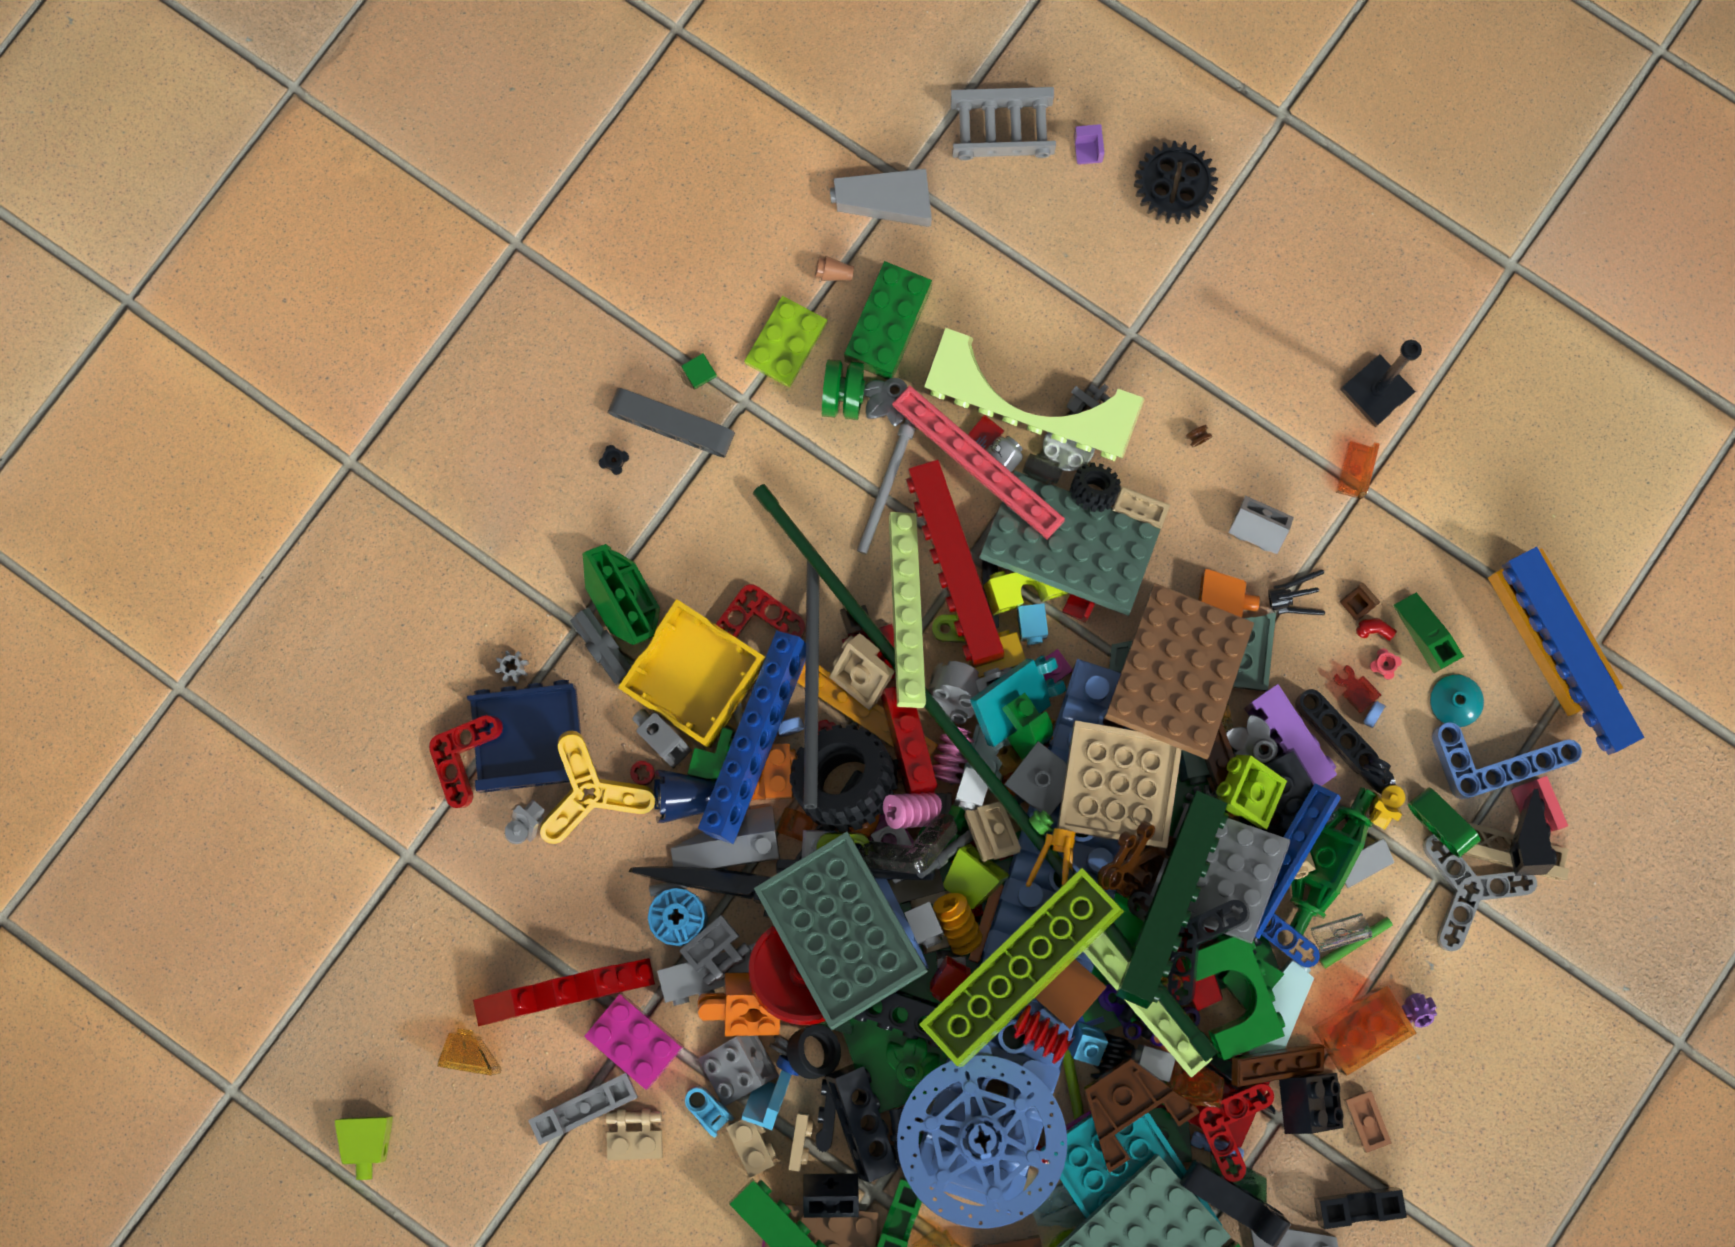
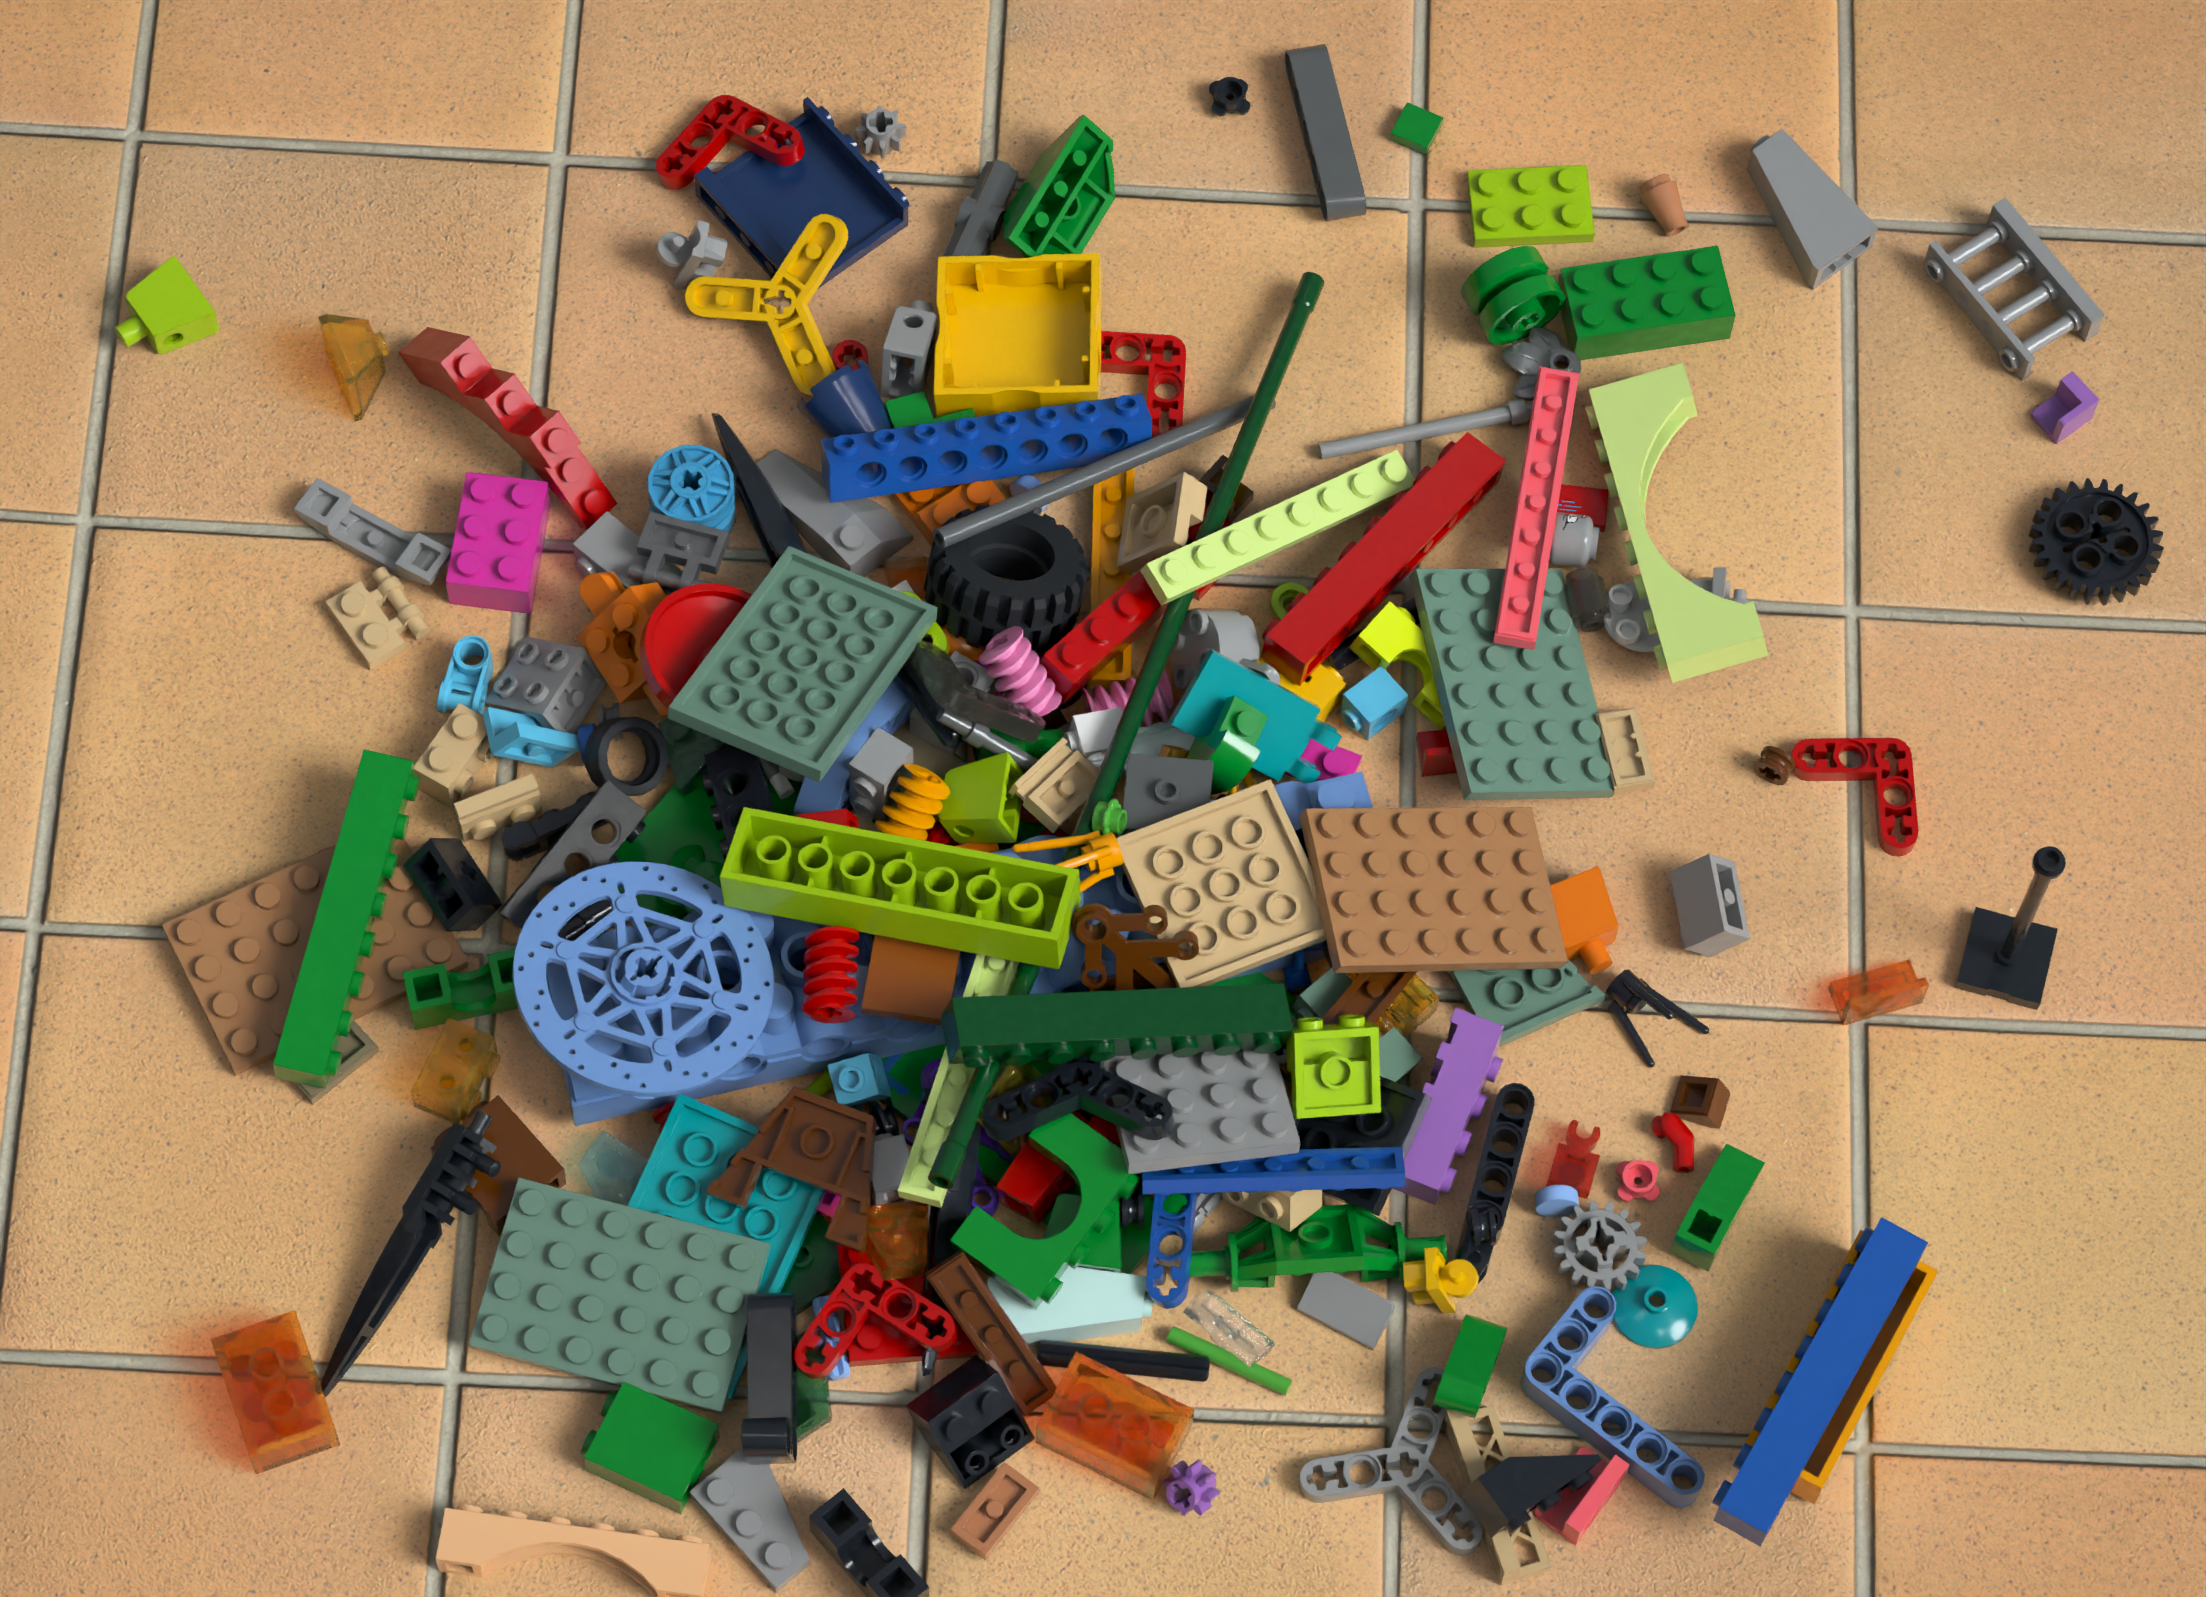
camera: 50 degrees right, 15 degrees down
(1095, 498) = (1597, 683): black tyre -> none
(1228, 385) = (1875, 769): none -> red beam
(1250, 738) = (1406, 1042): flat silver plate -> none
(1324, 998) = (1127, 1360): none -> black axle
(1418, 700) = (1615, 1243): none -> light grey gear

